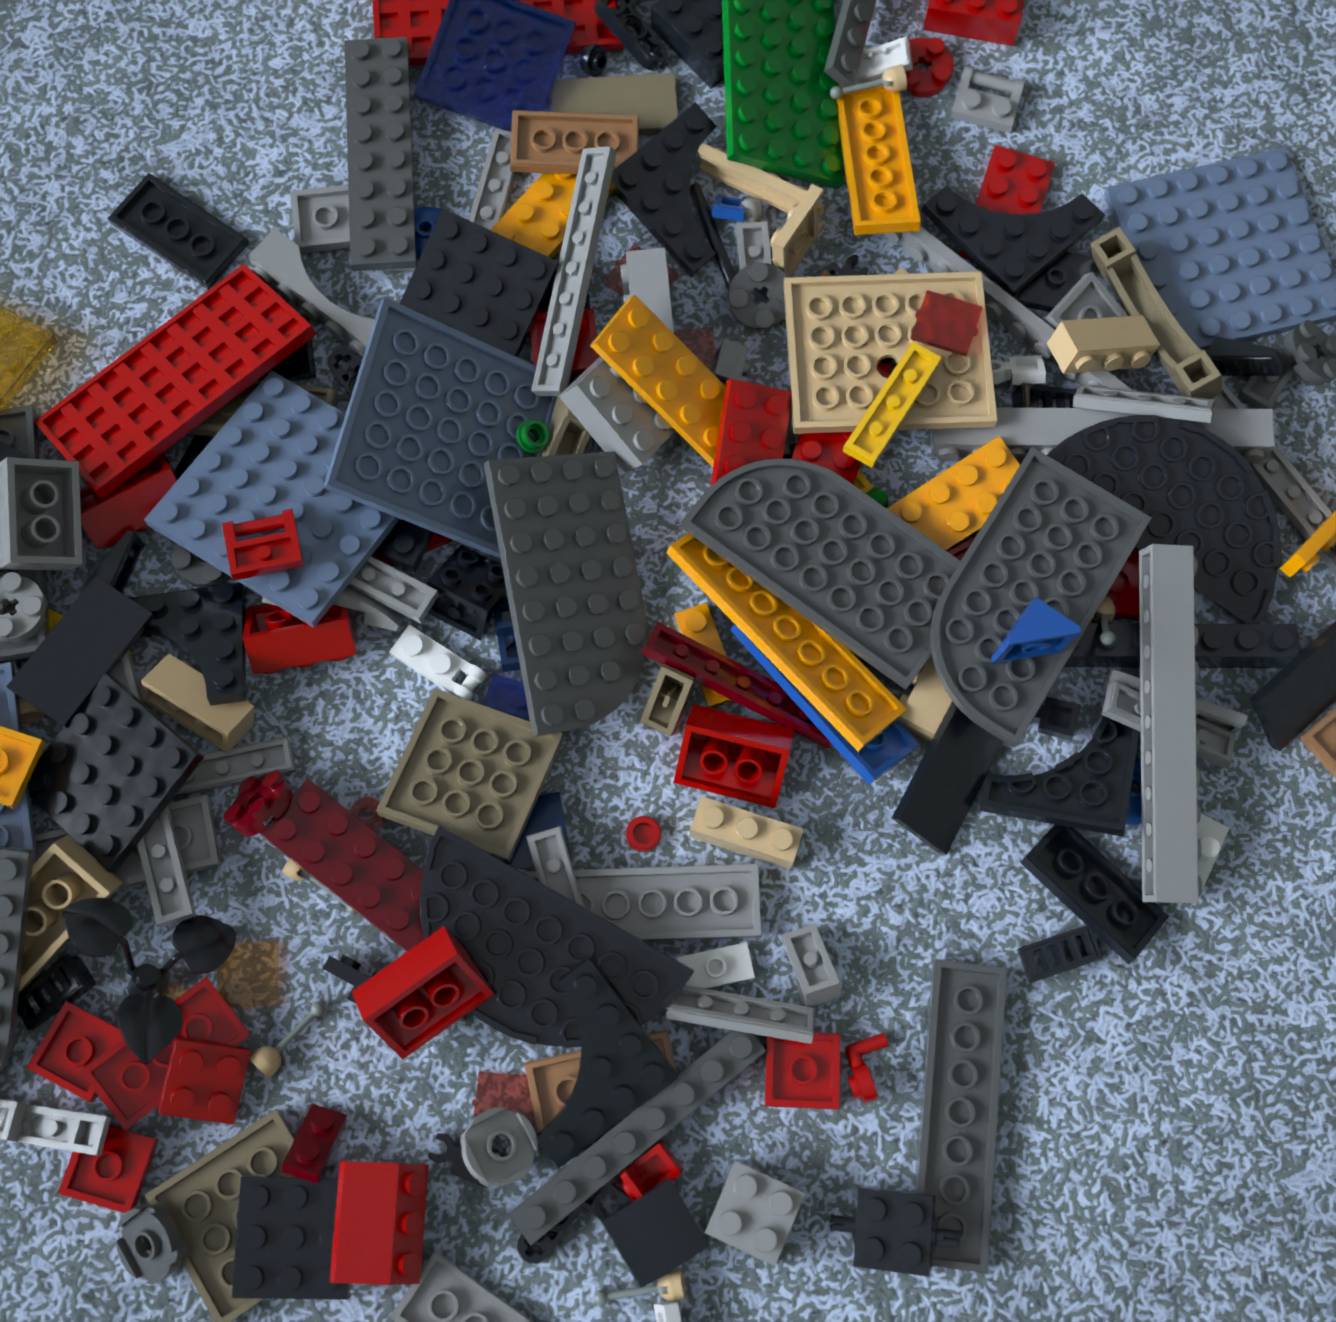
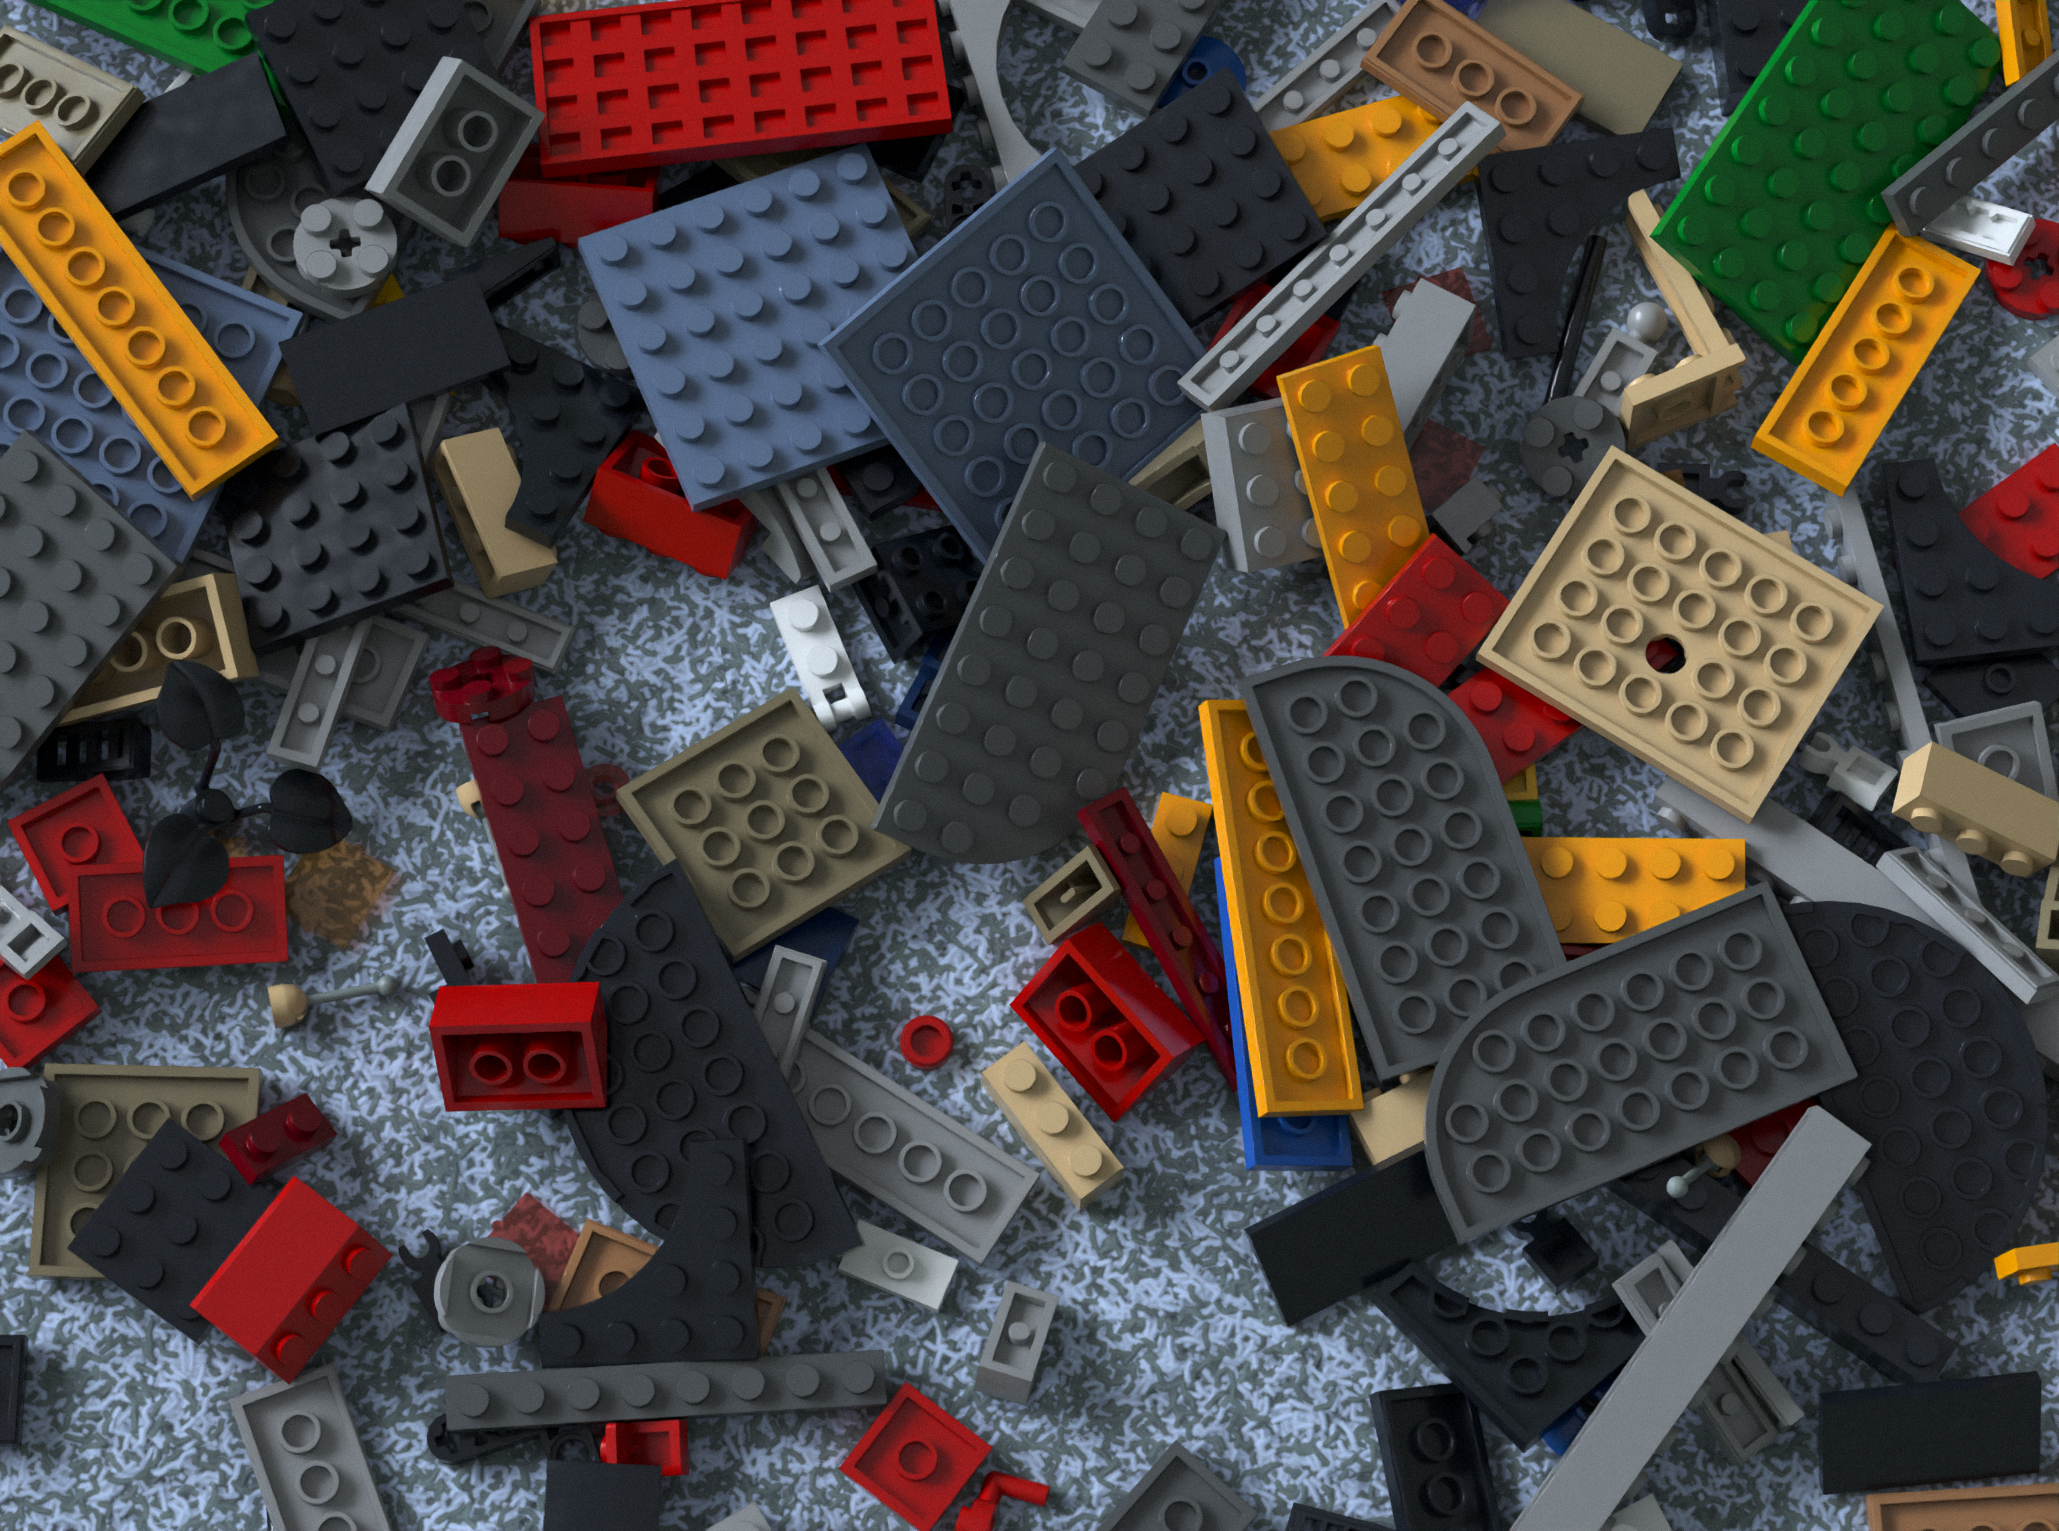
camera: 35 degrees right, 0 degrees up
(204, 1080) = (200, 977): red plate -> none
(263, 553) = (692, 379): red plate -> none
(540, 434) = (1151, 447): green plate -> none
(728, 208) = (1618, 300): blue tile -> none
(743, 1014) = (889, 1339): light grey tile -> none
(892, 404) = (1624, 705): yellow plate -> none
(893, 80) = (1968, 264): hinge -> none
(946, 323) = (1781, 645): clear red piece -> none
(1037, 633) = (1573, 1115): blue slope -> none

